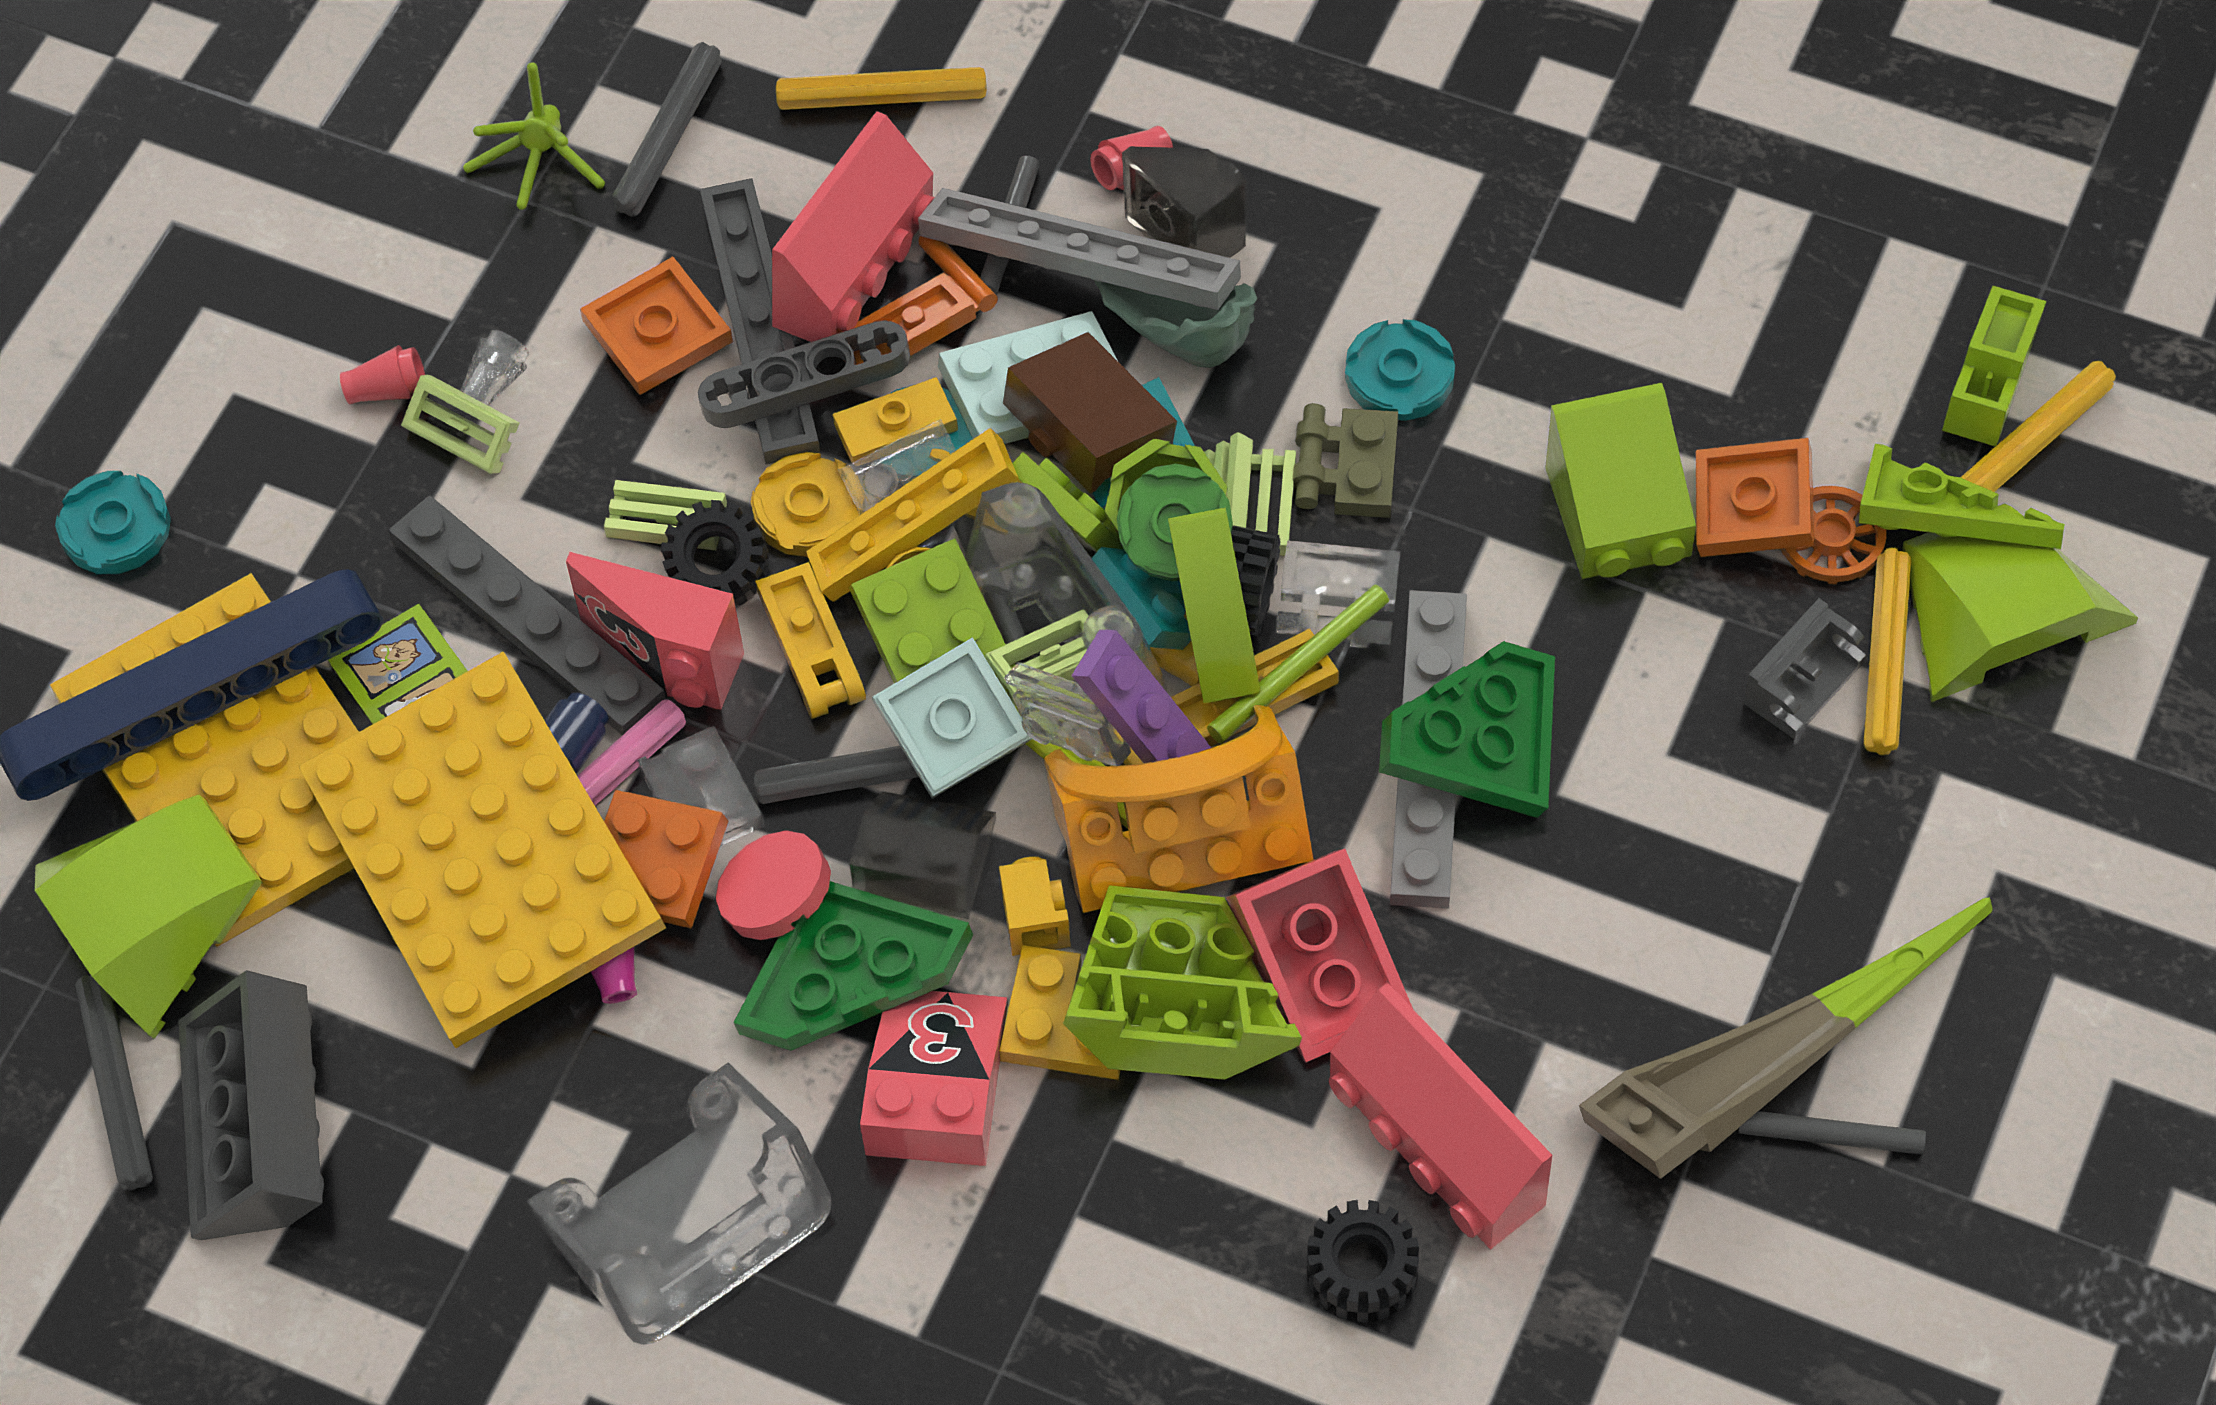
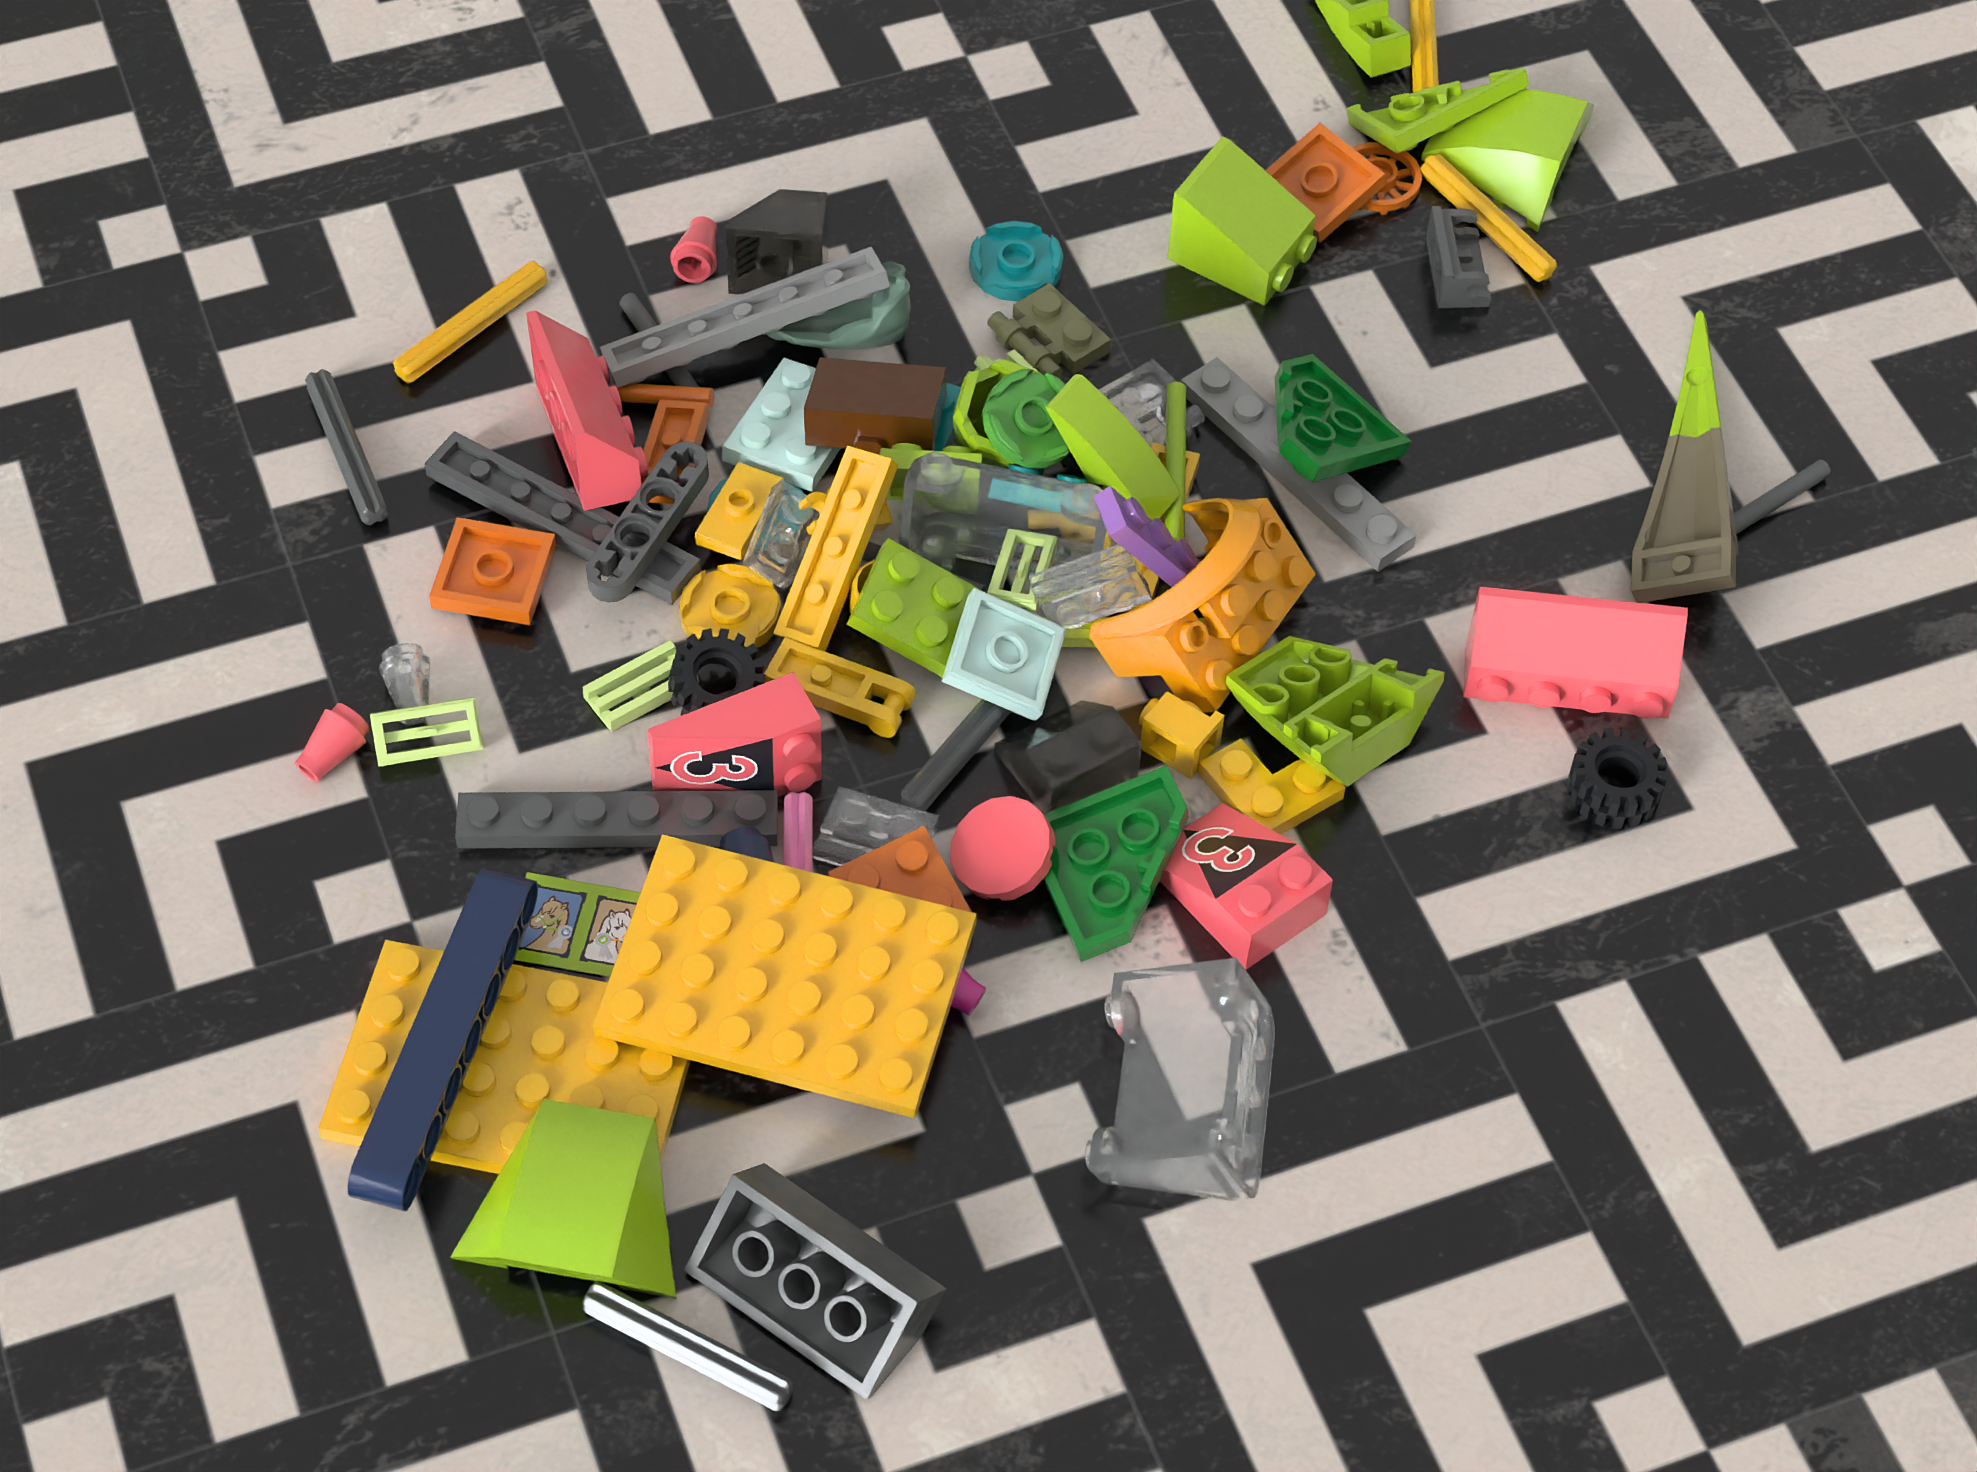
camera: 50 degrees left, 5 degrees down
(113, 522) = (228, 989): teal tile -> none
(536, 133) = (260, 507): lime plant -> none
(1317, 947) = (1381, 613): coral slope -> none

